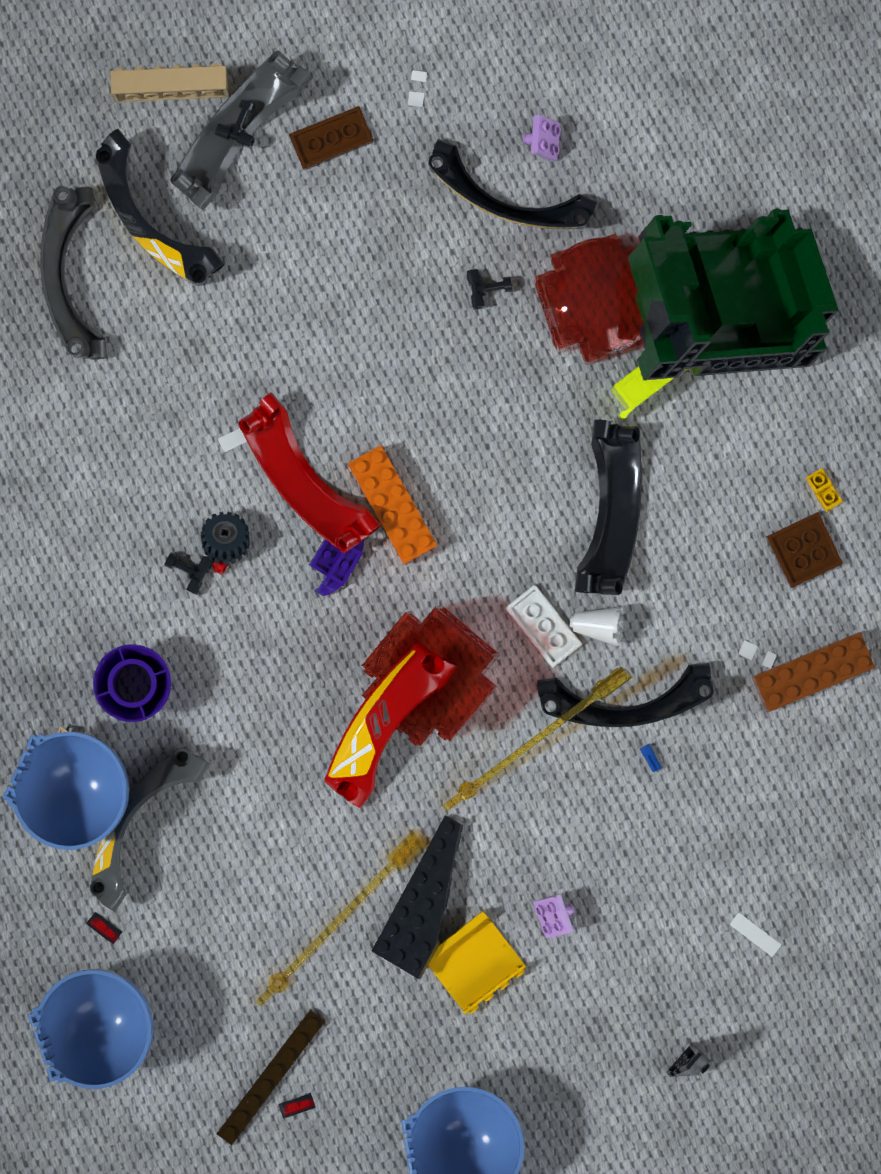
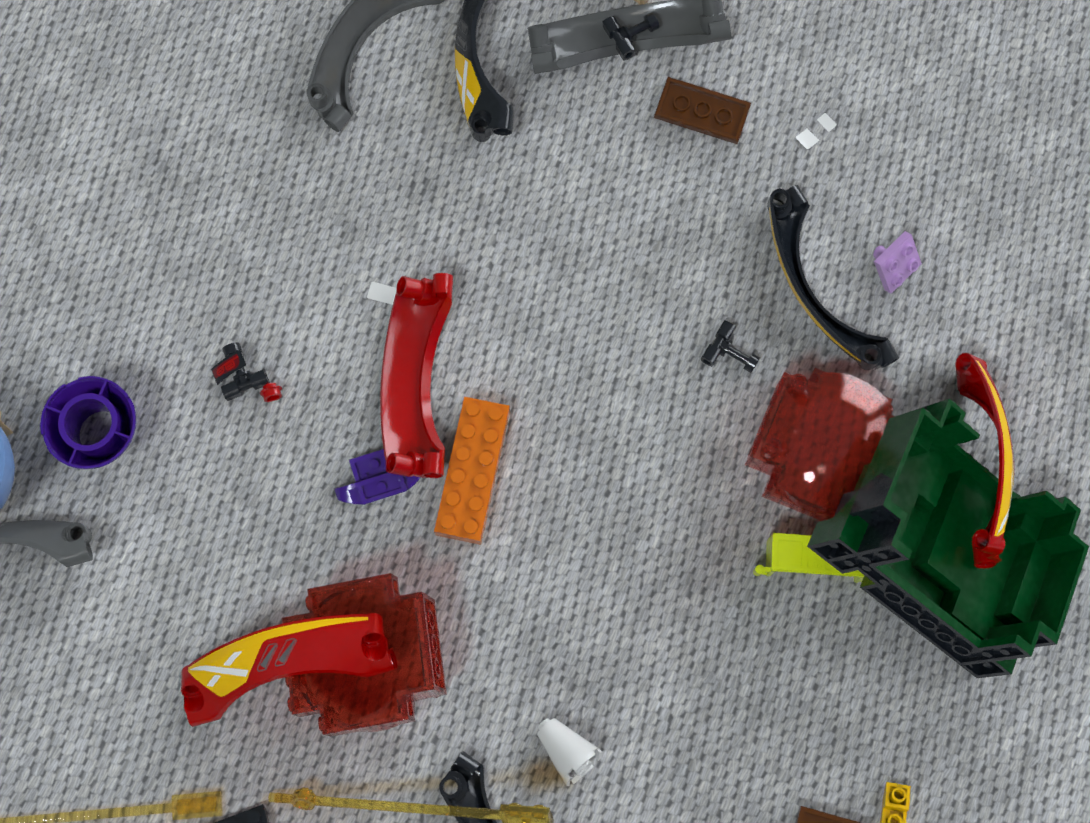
camera: 45 degrees right, 10 degrees down
(179, 573) = (228, 366): none -> sticker
(225, 538) = (296, 369): black wheel -> none
(543, 626) = (514, 705): white tile -> none
(620, 490) = (707, 626): black panel -> none
(662, 180) = (977, 385): none -> red panel

